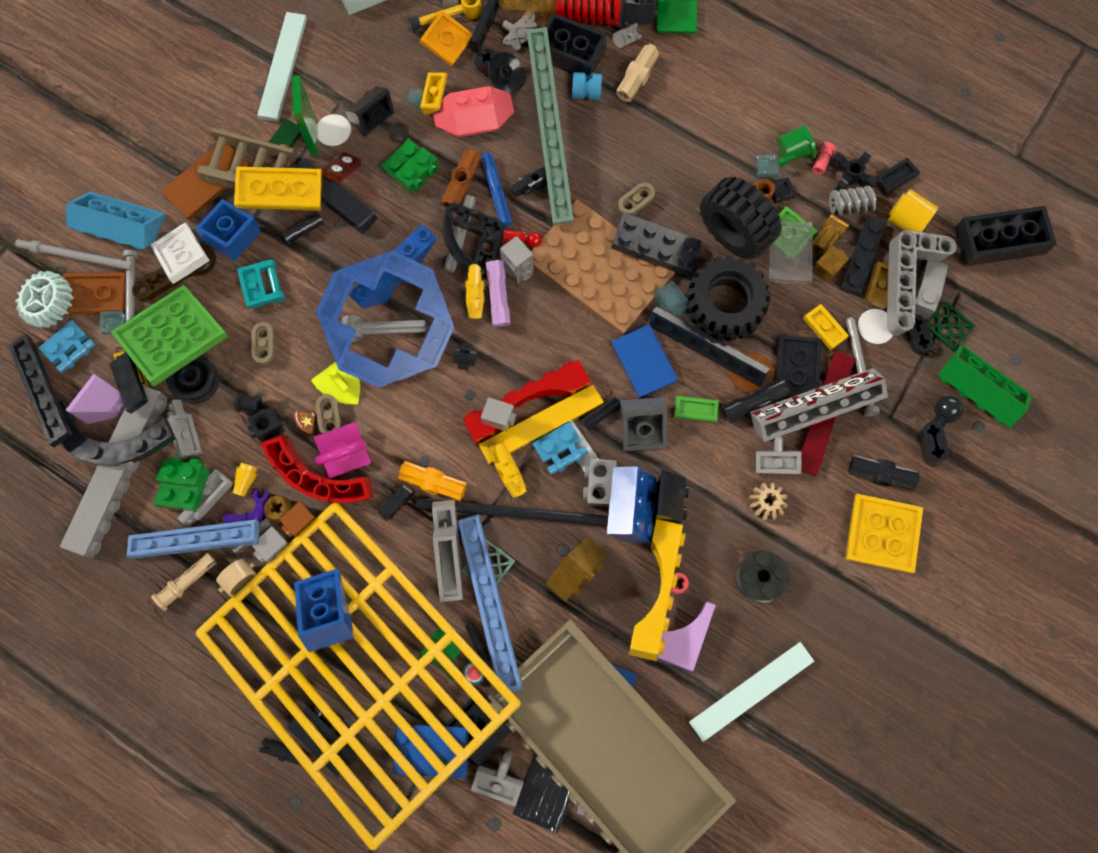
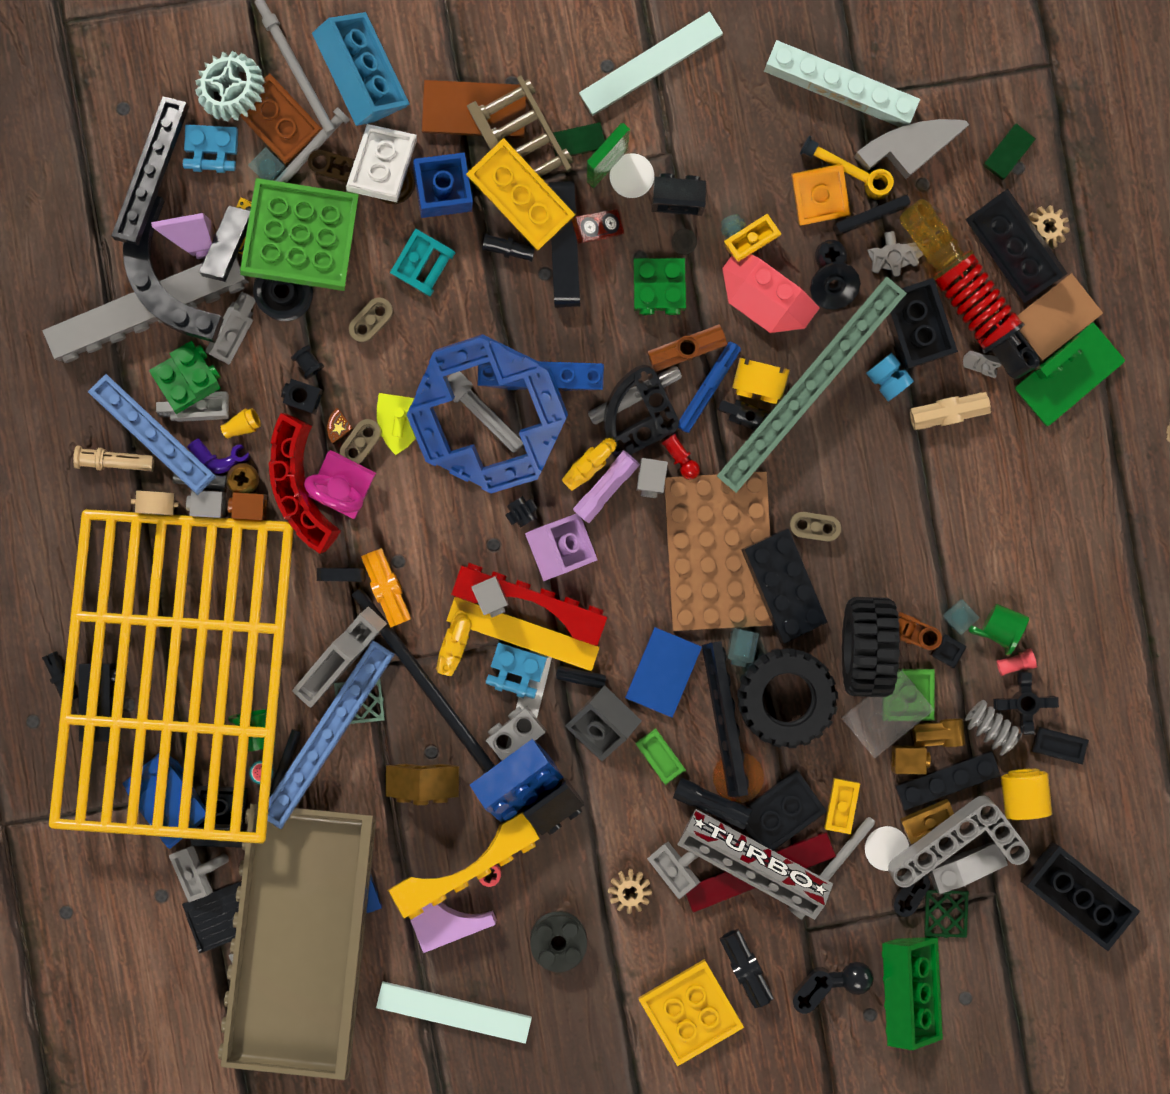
camera: 45 degrees right, 15 degrees up
(322, 611) = (192, 606): blue slope -> none
(508, 353) = (561, 546): none -> lavender slope
(519, 153) = (760, 380): none -> yellow brick

